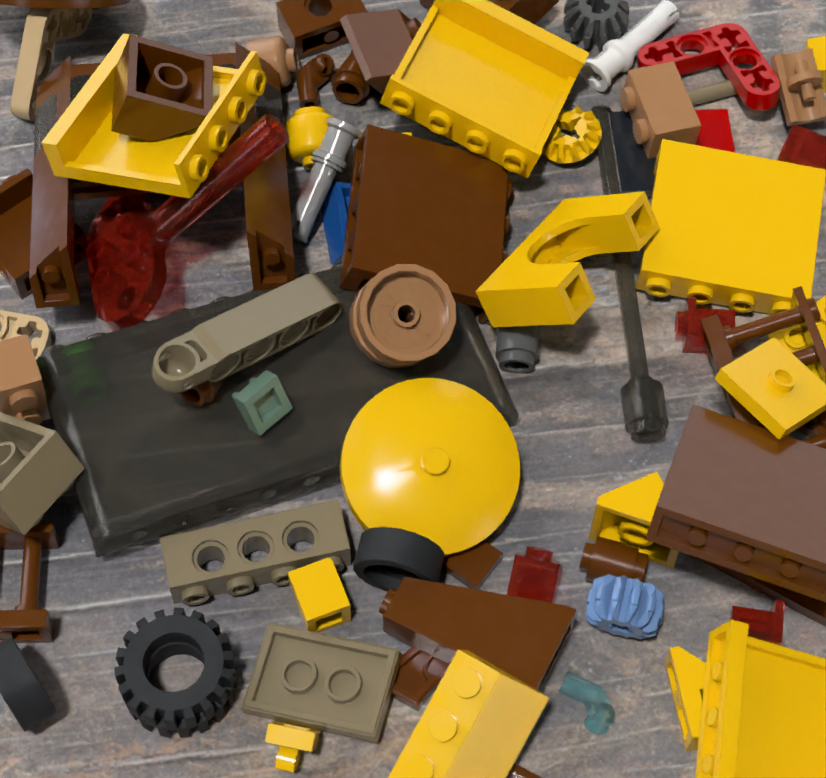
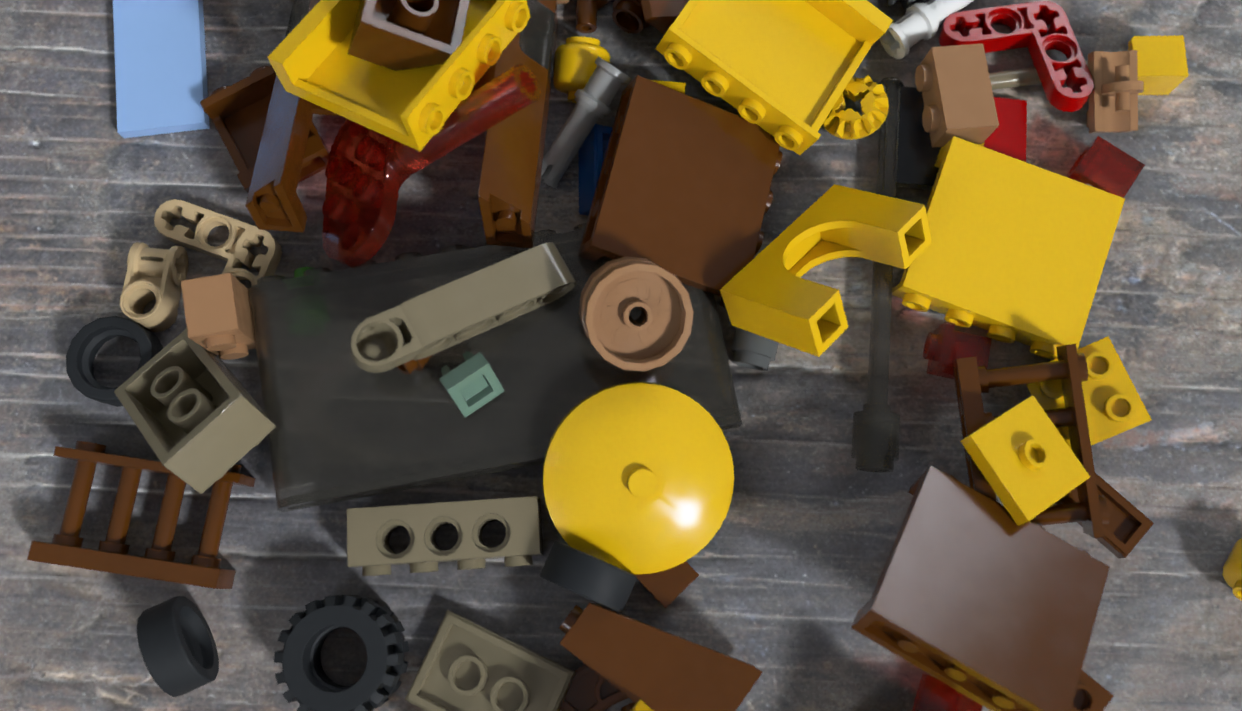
camera: 10 degrees right, 15 degrees up
(319, 596) = (501, 594): yellow panel -> none
(534, 574) = (725, 612): clear red bracket -> none
(612, 558) = (812, 608): reddish brown brick -> none
(625, 606) = (815, 666): medium blue gear -> none
(626, 517) = (846, 570): yellow slope -> none

